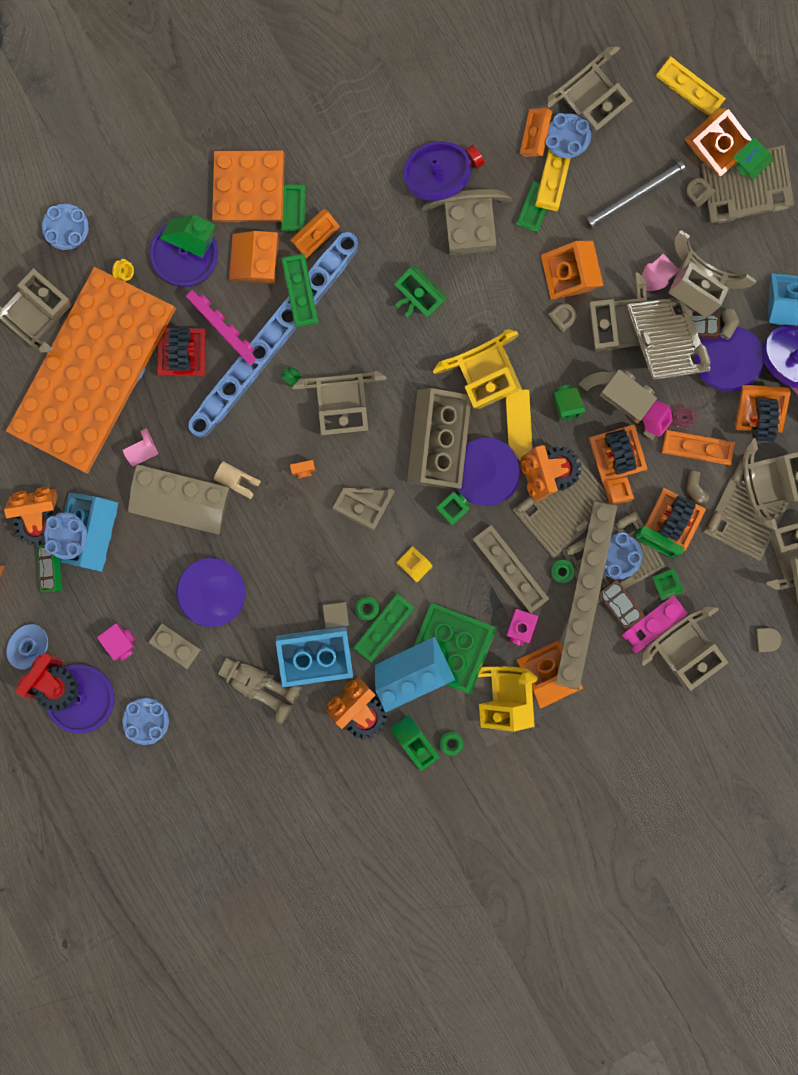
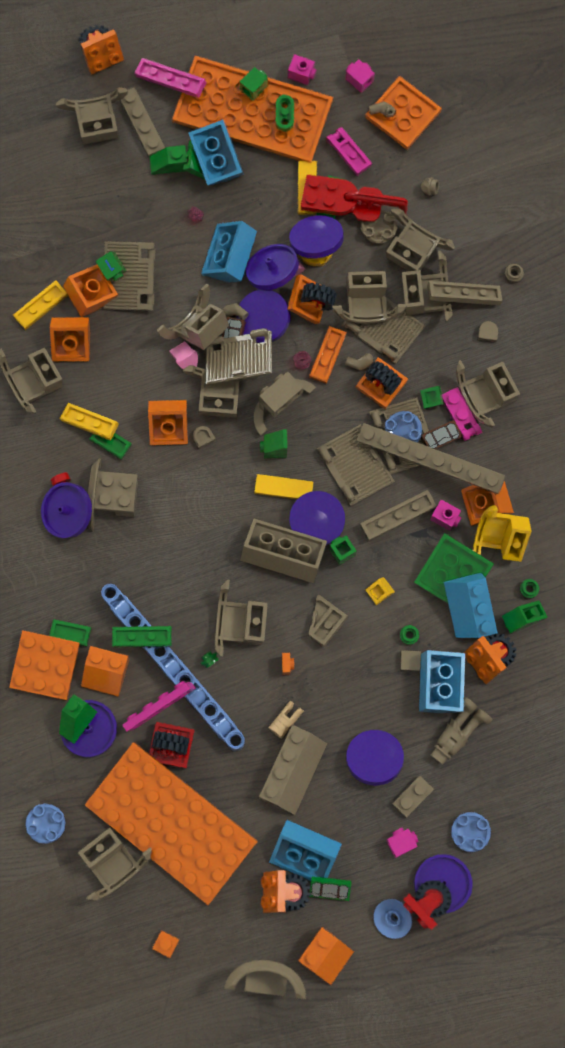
camera: 75 degrees left, 10 degrees down
(65, 535) = (308, 866): medium blue dish -> none
(123, 270) = (92, 781): yellow plate -> none
(142, 450) = (247, 793): bright pink tile -> none
(315, 233) = (95, 618): orange plate -> none
(383, 628) = (427, 624): green tile -> none
(420, 292) = (161, 542): green brick -> none
(486, 370) = (236, 502): yellow piece -> none
(535, 132) = (51, 428): orange plate -> none
(549, 471) = (327, 468): orange plate -> none
(568, 135) = (60, 403): medium blue dish -> none
(568, 566) = (401, 473): green plate -> none
(618, 453) = (321, 415): plate -> none
(618, 491) = (351, 420): orange plate -> none
(653, 131) = (70, 339): none -> orange slope
(657, 418) = (302, 377): dark pink slope -> none
(658, 542) = (398, 397): green tile -> none
(679, 167) = (102, 325): flat silver bar -> none
(699, 191) = (125, 313): dark tan tile -> none

